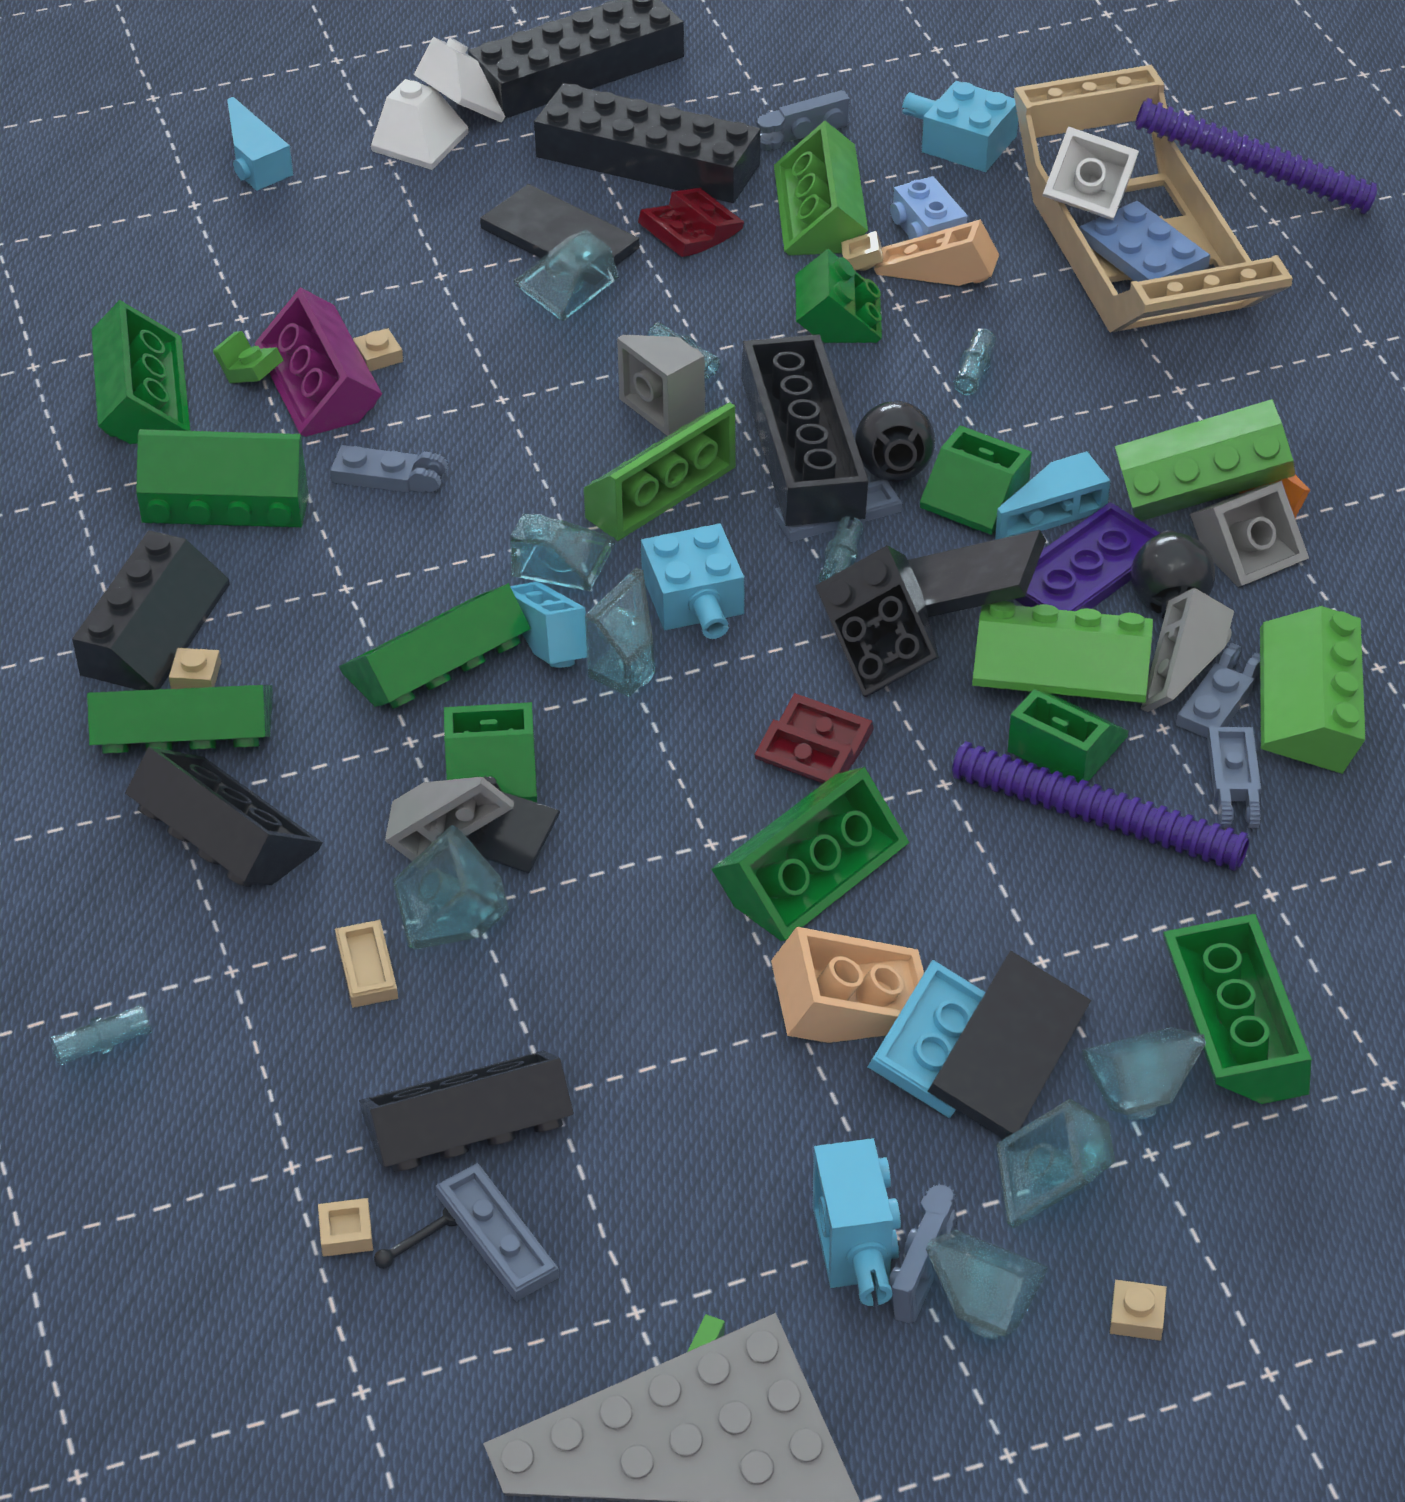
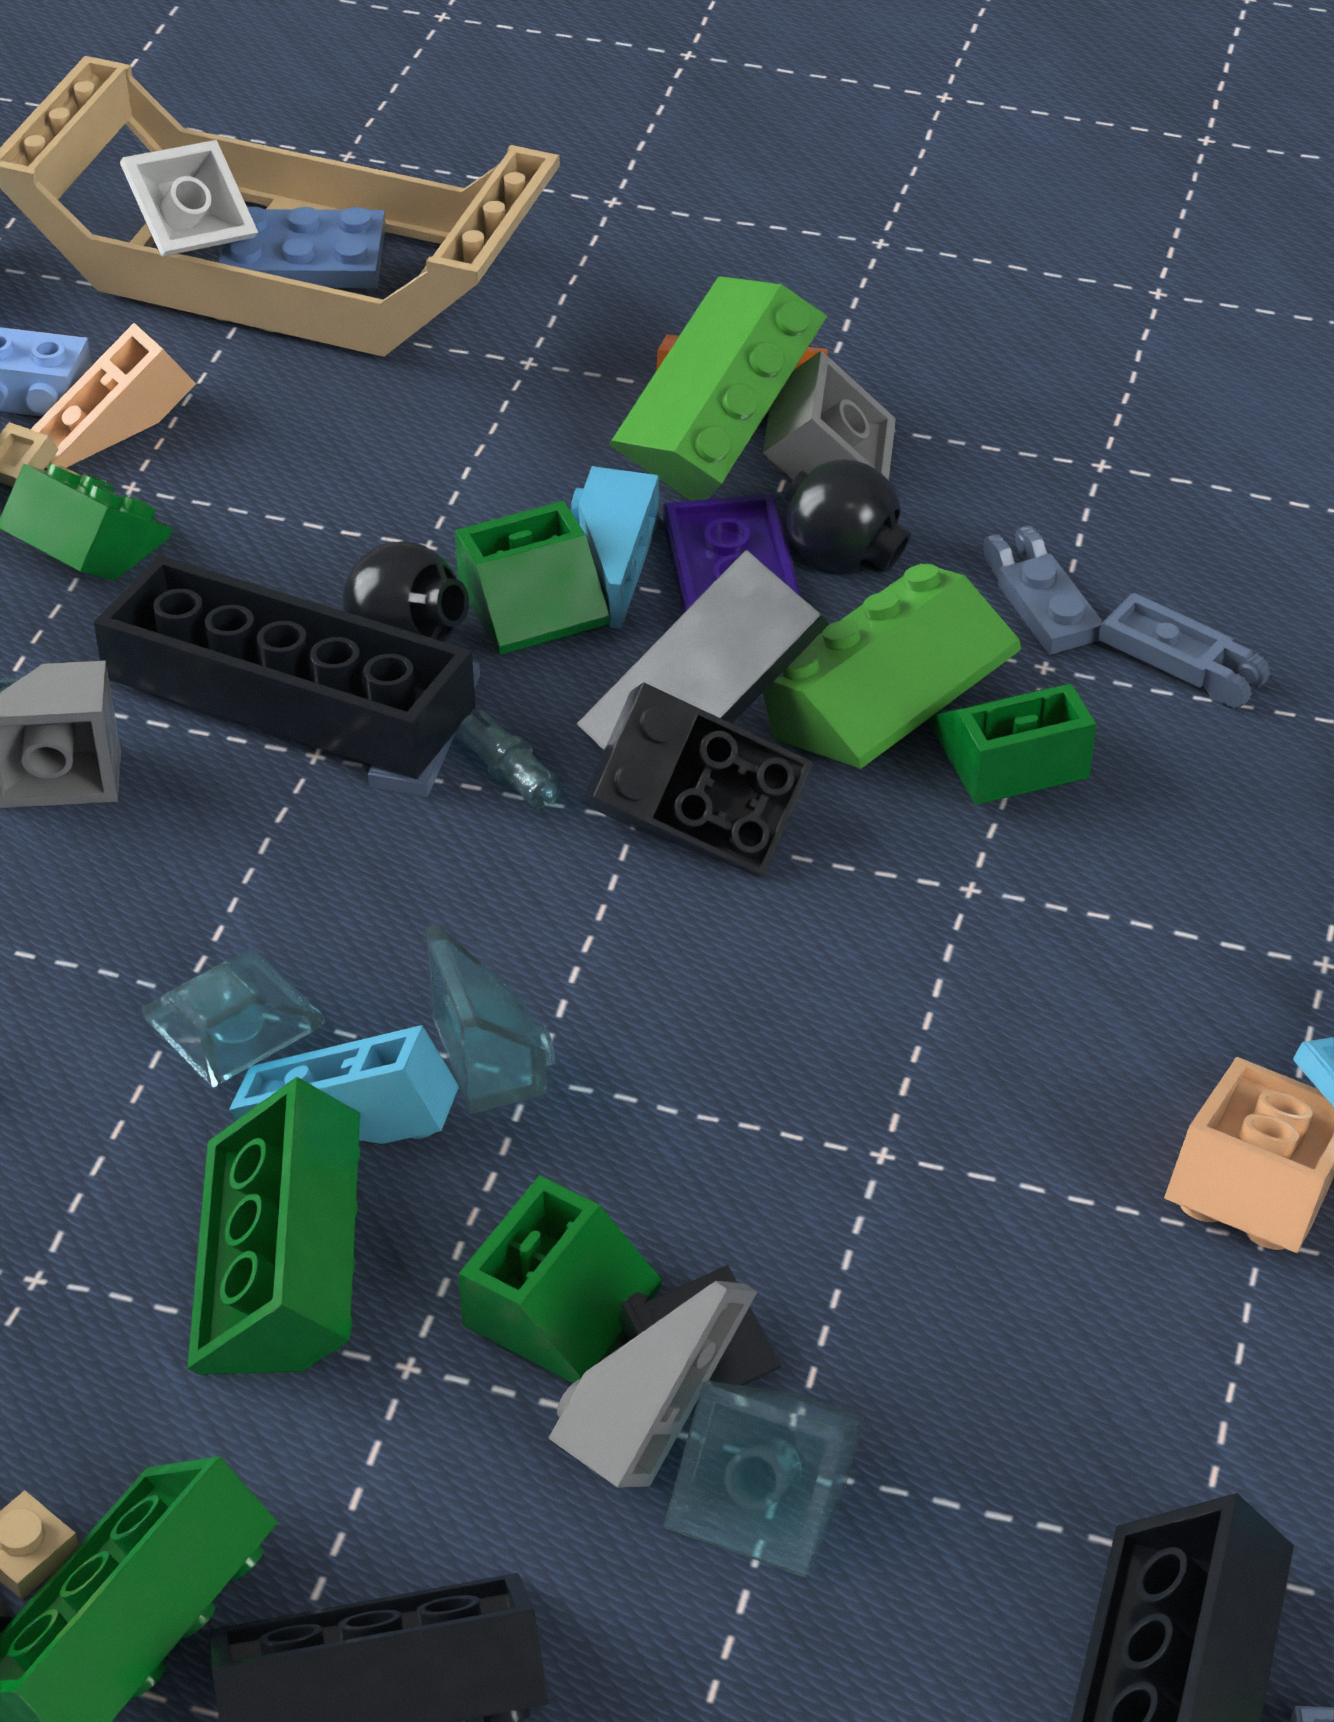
camera: 55 degrees left, 0 degrees up
(366, 963) = (800, 1644): tan tile -> none
(663, 474) = (202, 832): bright green slope -> none
(693, 579) = (424, 882): medium azure brick -> none
(812, 854) = (1005, 1064): green slope -> none
(814, 739) = (804, 958): dark red slope -> none
(975, 361) = (312, 477): clear light blue pin -> none
(1100, 805) = (1136, 778): dark purple piece -> none
(1189, 639) = (959, 541): light grey slope -> none
(1256, 156) = (275, 92): dark purple piece -> none
(1312, 687) = (1124, 511): bright green slope -> none

